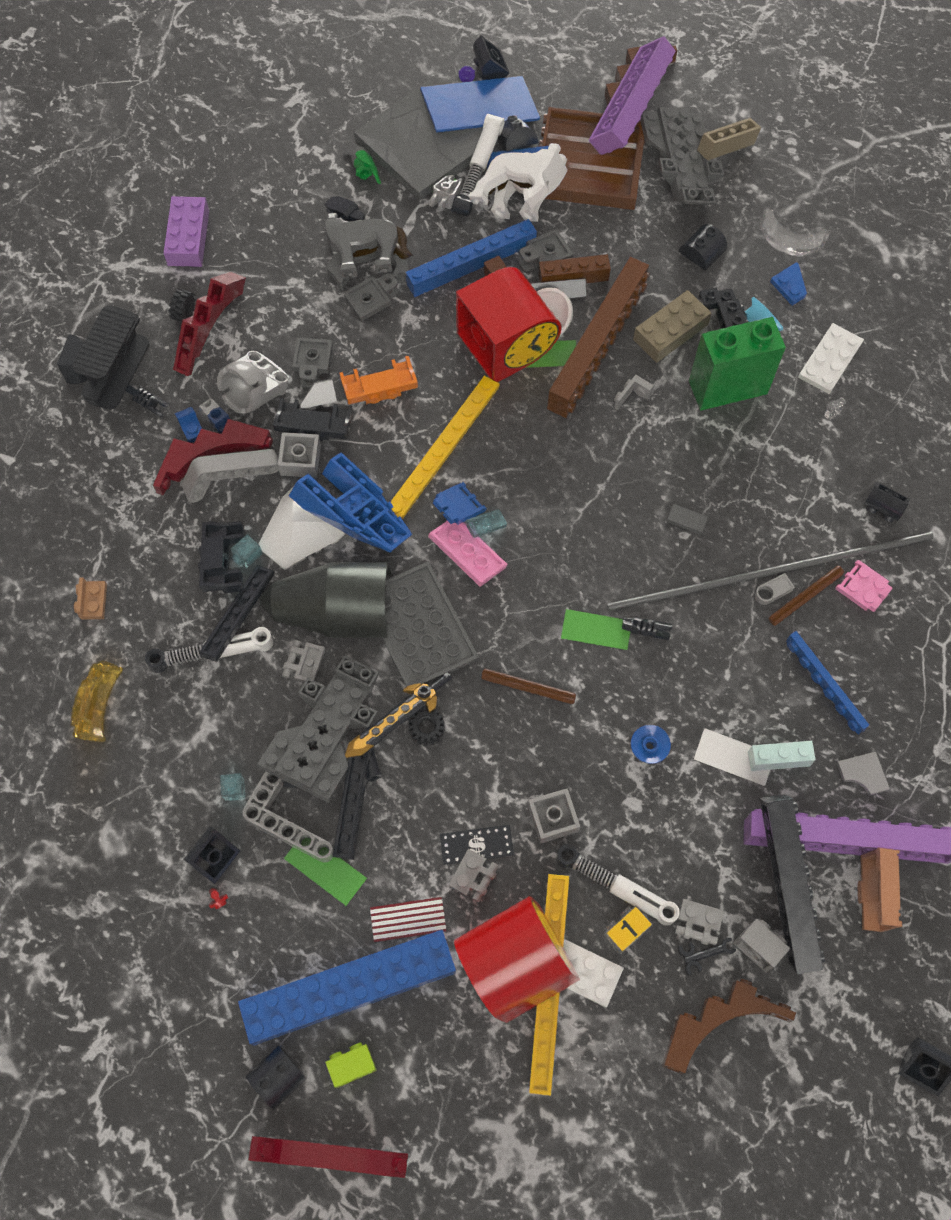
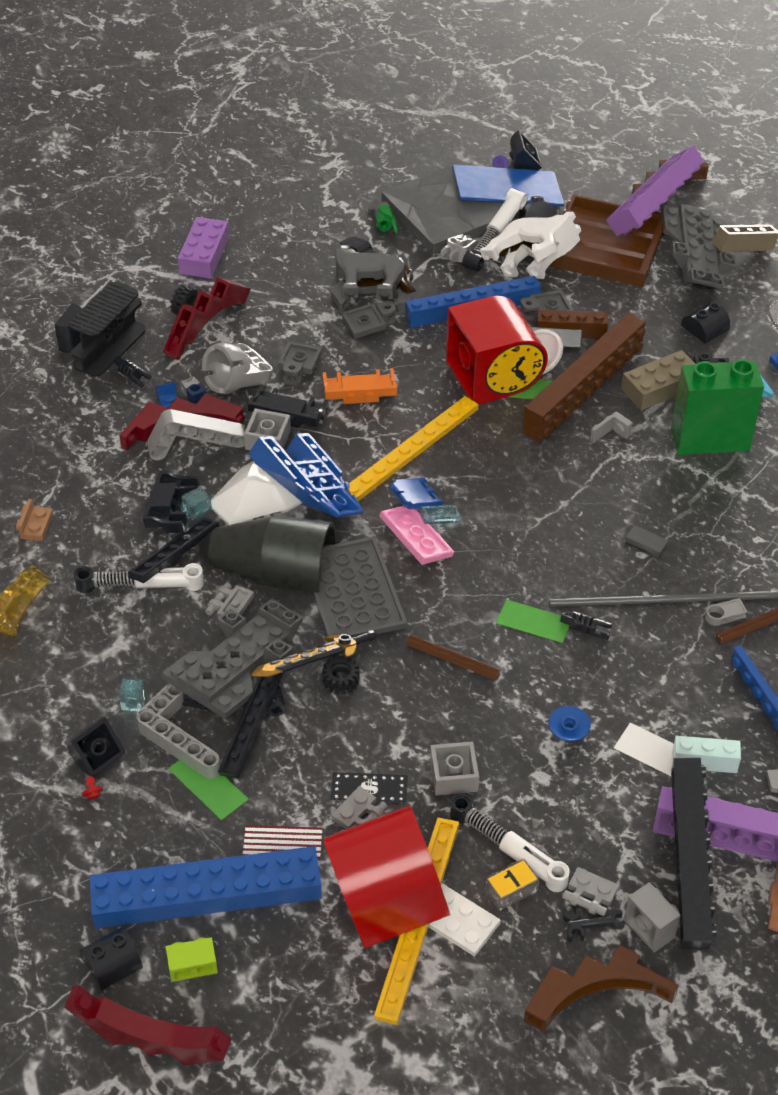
camera: 10 degrees right, 20 degrees down
(319, 394) = (300, 387): light grey slope -> none

